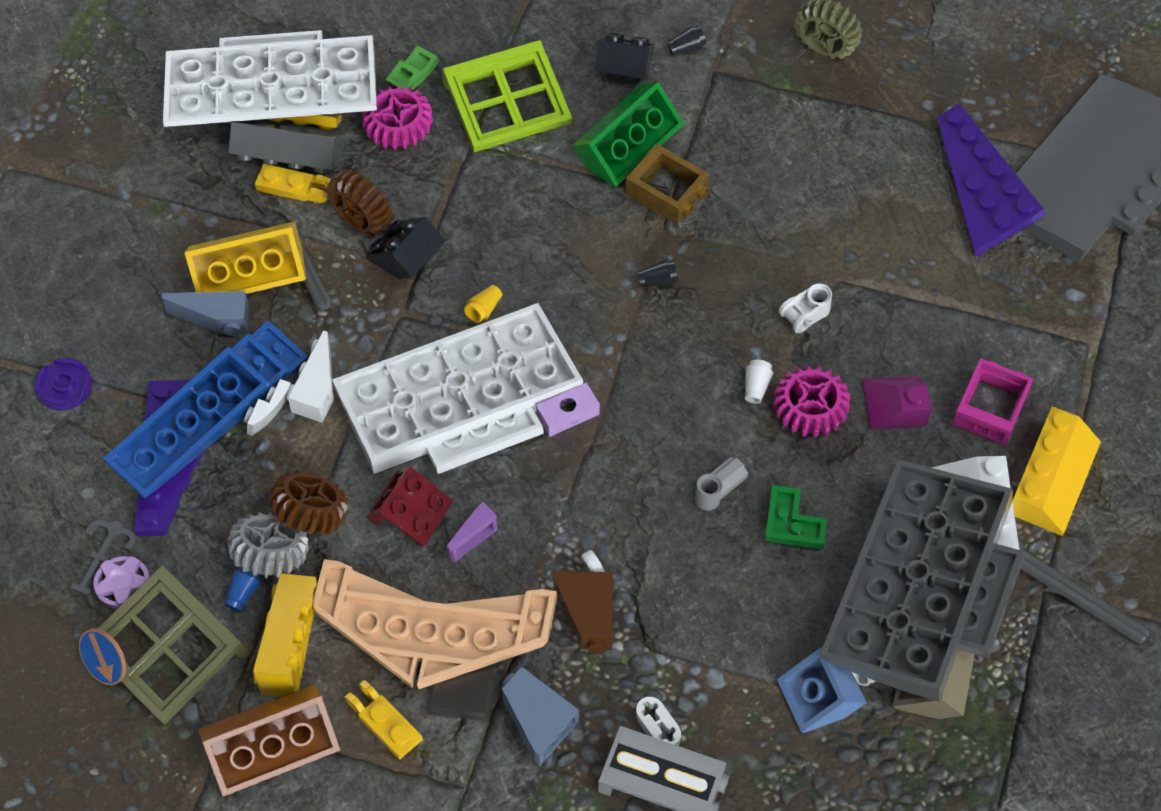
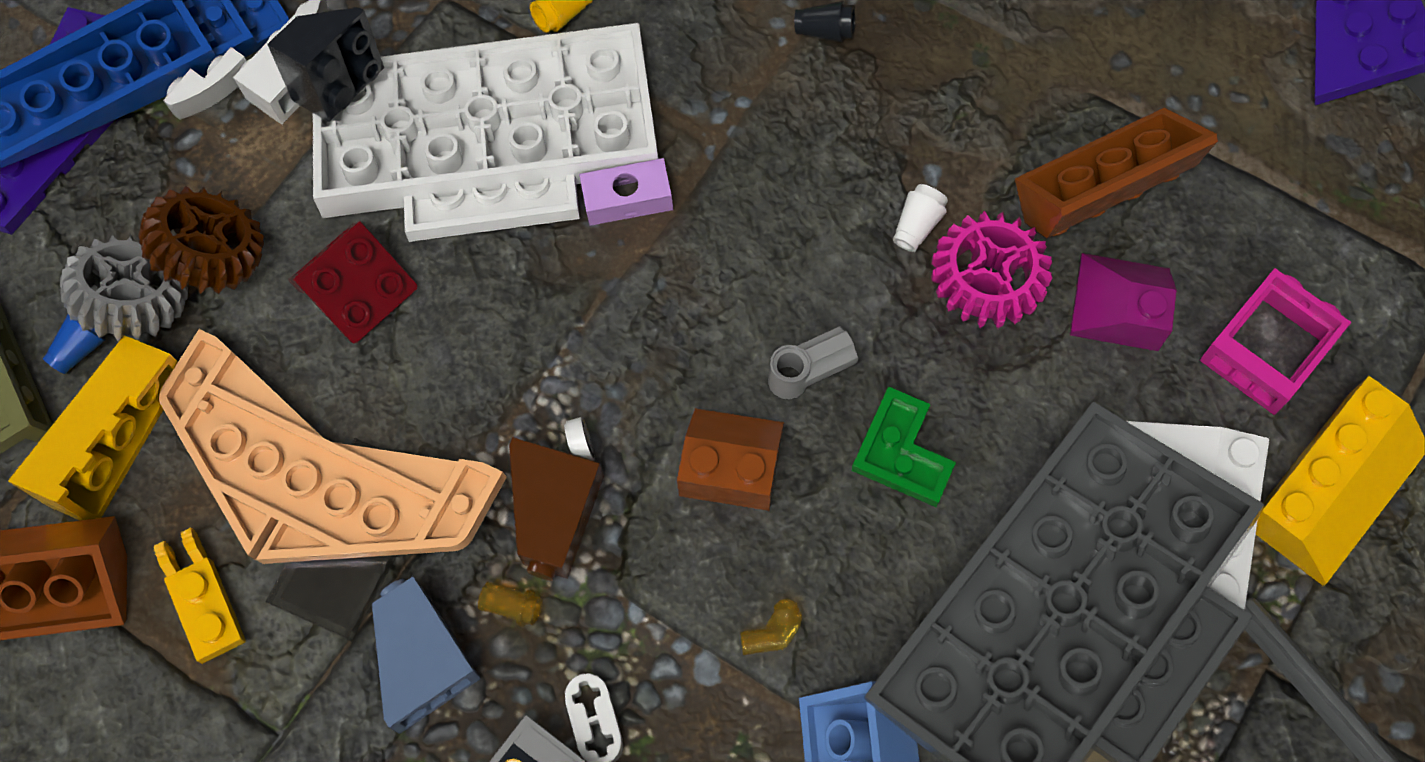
camera: 20 degrees right, 10 degrees up
(351, 372) = (326, 59): none -> black slope
(475, 530) = (422, 343): medium lavender slope -> none
(583, 671) = (510, 603): none -> clear yellow pin
(690, 553) = (730, 459): none -> dark orange slope
(752, 644) = (777, 632): none -> clear yellow arm
(803, 310) = (1022, 123): white piece -> none
(865, 324) = (1111, 170): none -> dark orange slope

